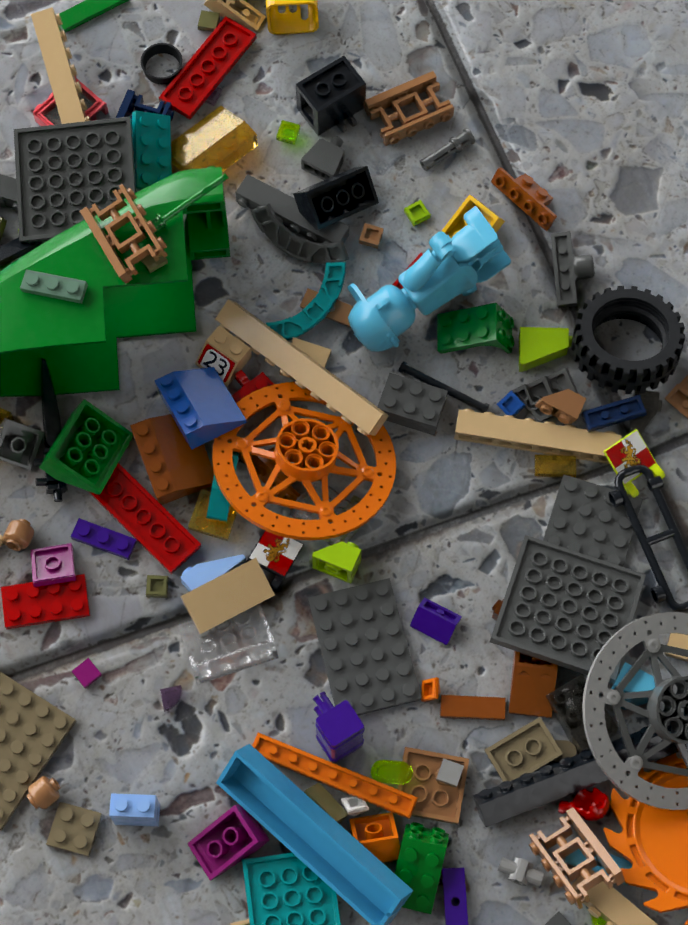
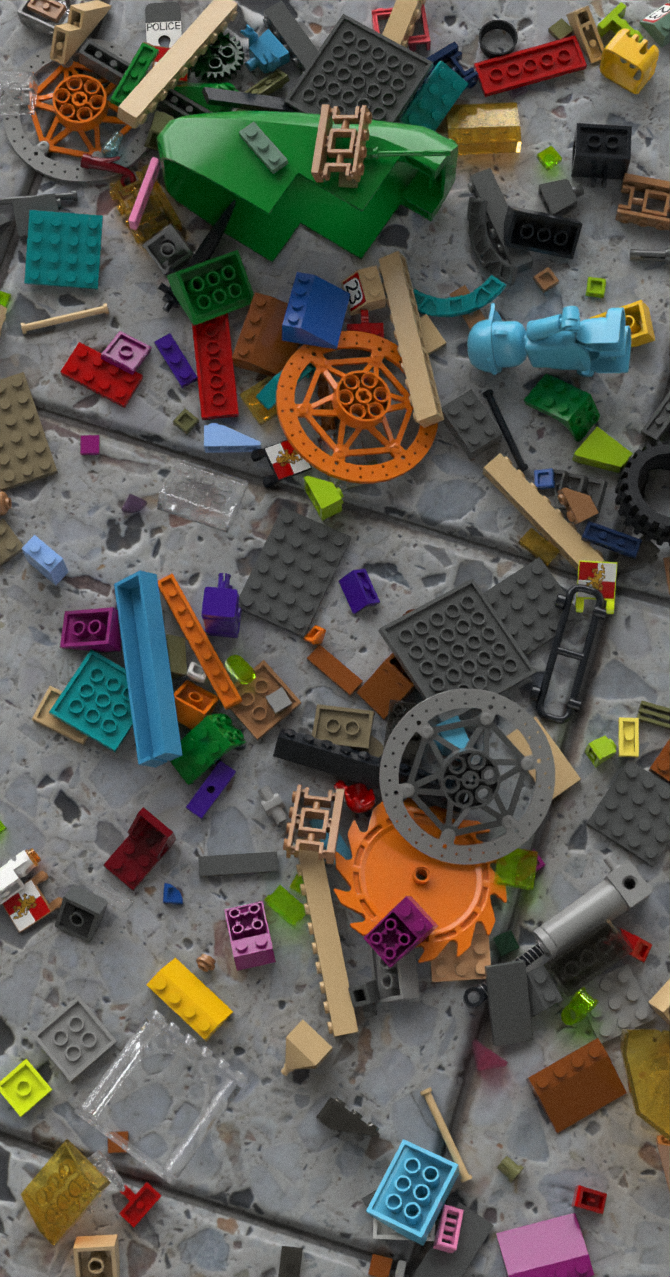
camera: 40 degrees right, 5 degrees up
(18, 534) = (119, 314): medium nougat head -> none
(227, 595) = (226, 462): tan tile -> none

